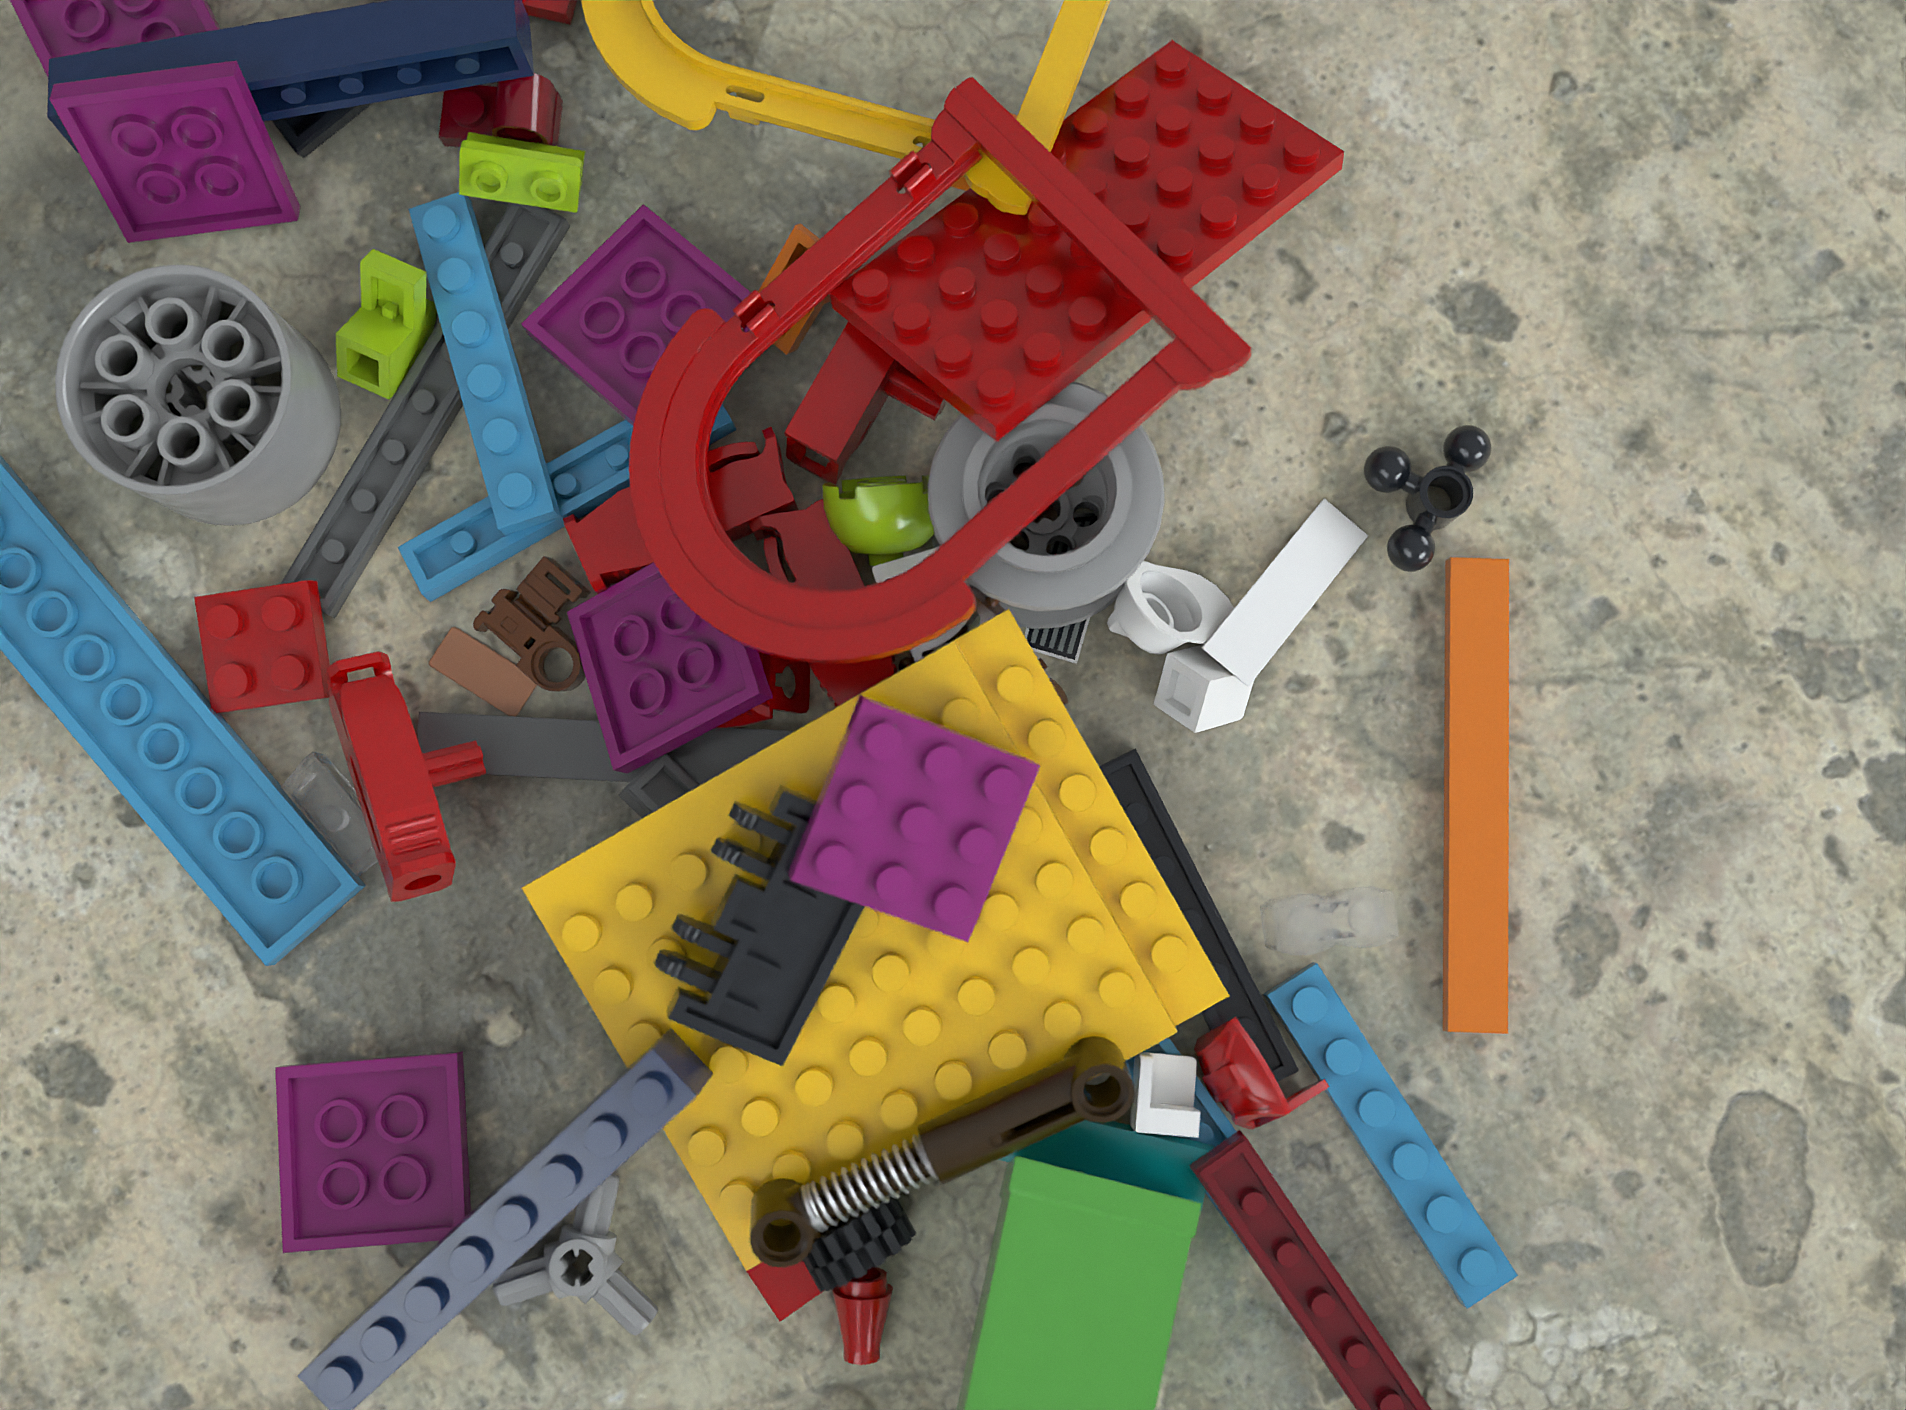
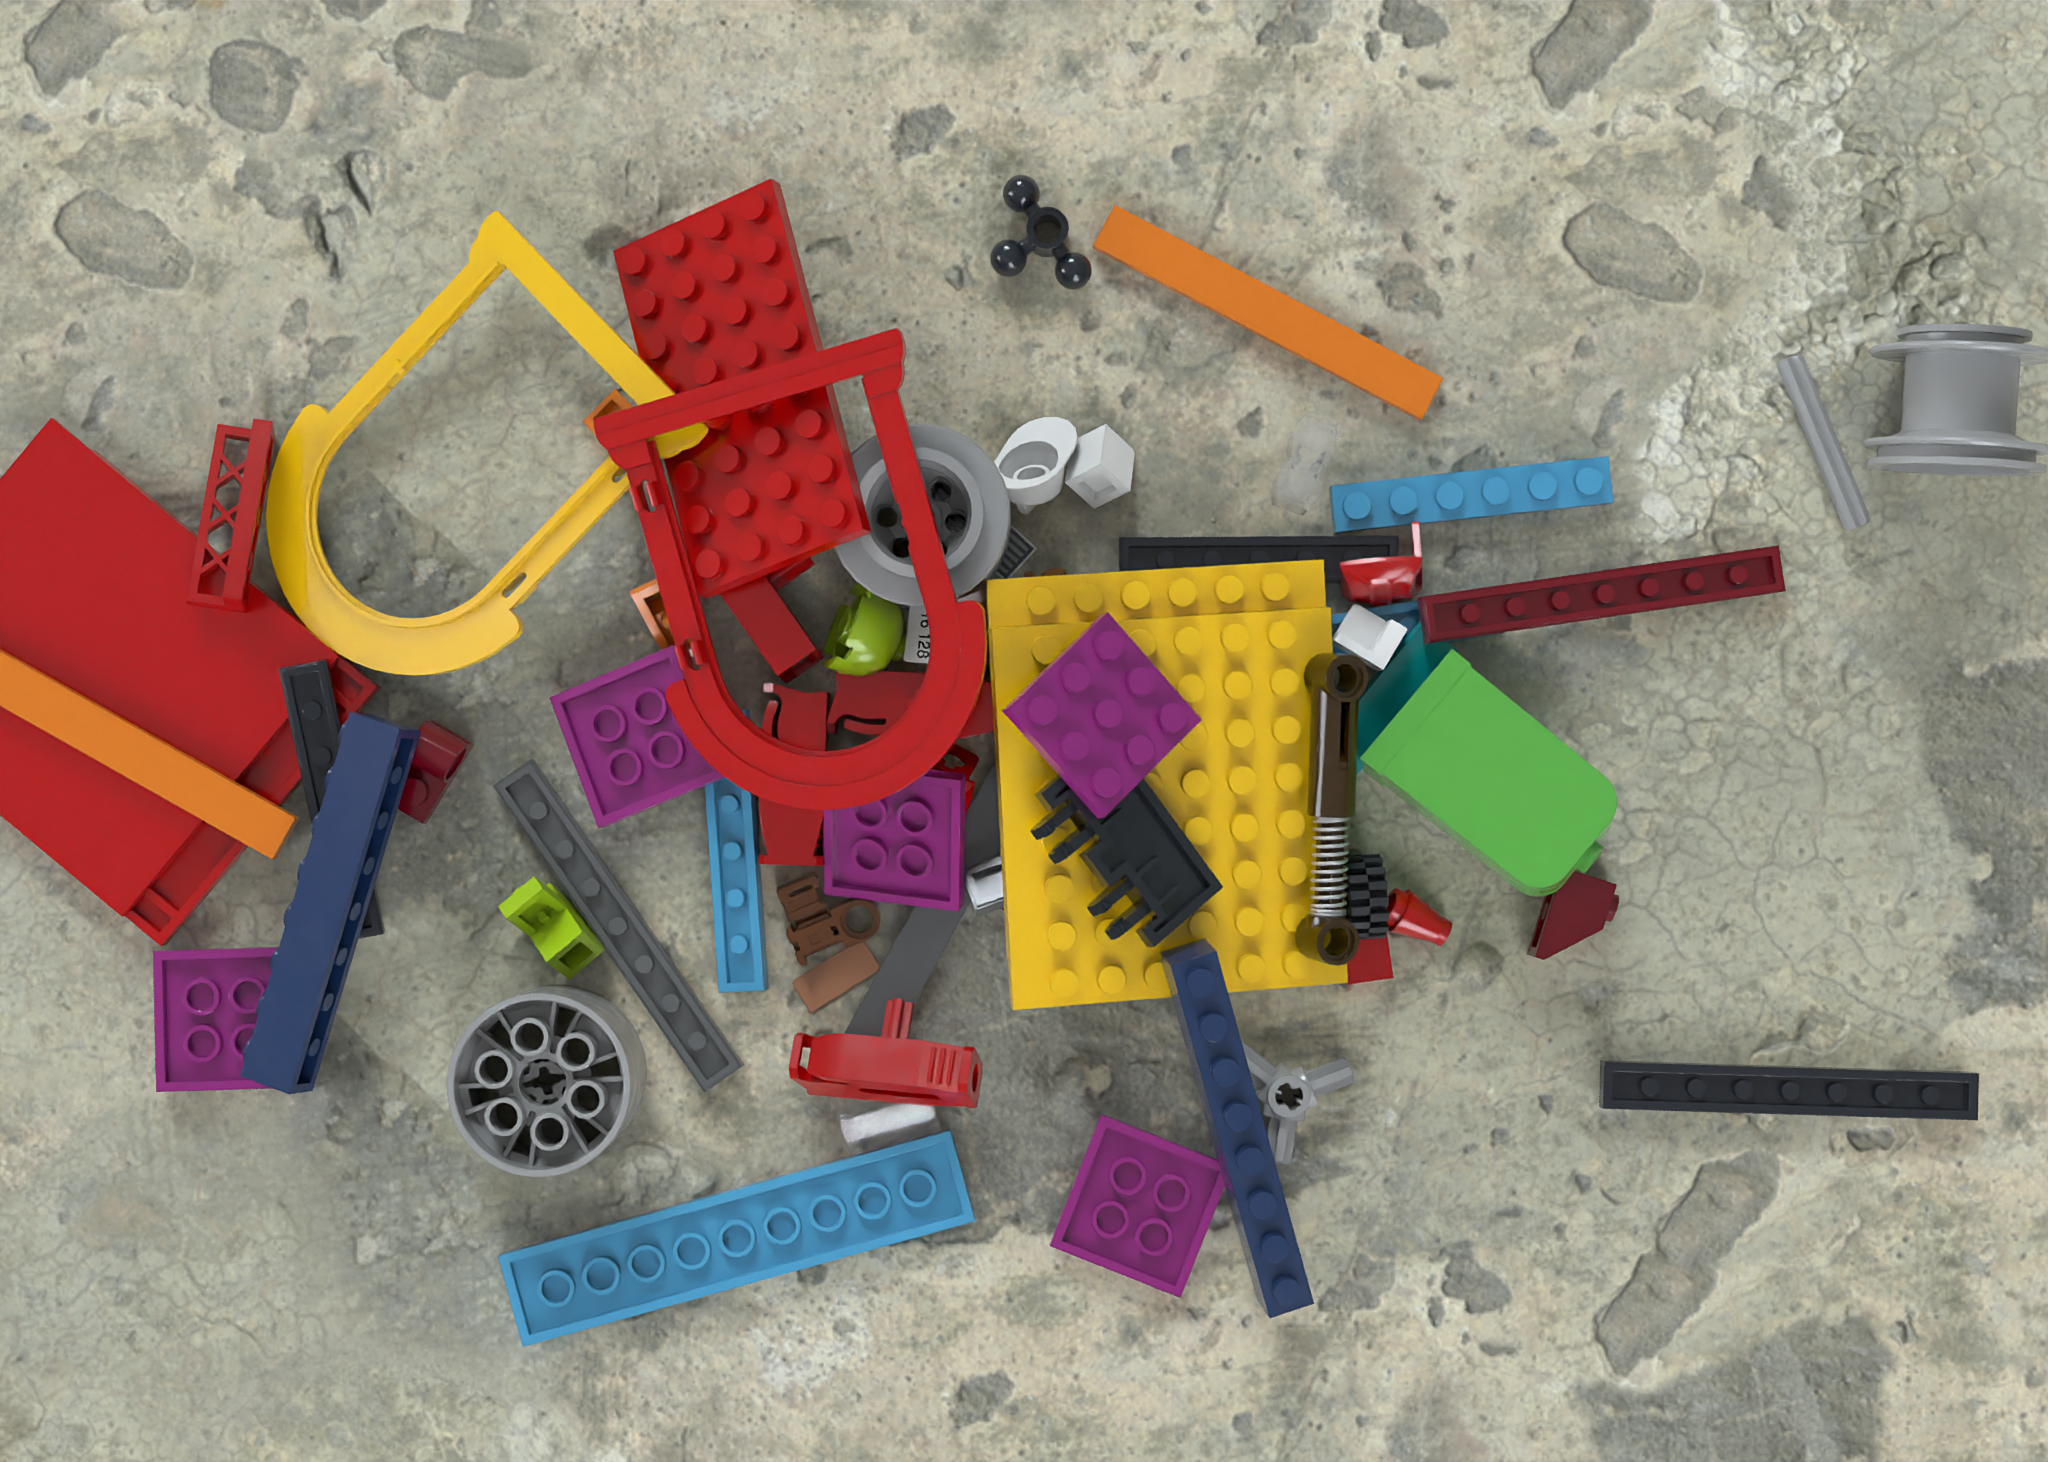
camera: 65 degrees left, 5 degrees up
(177, 151) = (356, 1013): magenta plate -> none
(263, 646) = (744, 1121): red plate -> none
(484, 364) = (613, 867): dark azure plate -> none
(521, 172) = (484, 773): lime bracket -> none
(1285, 592) = (1061, 375): white sticker -> none

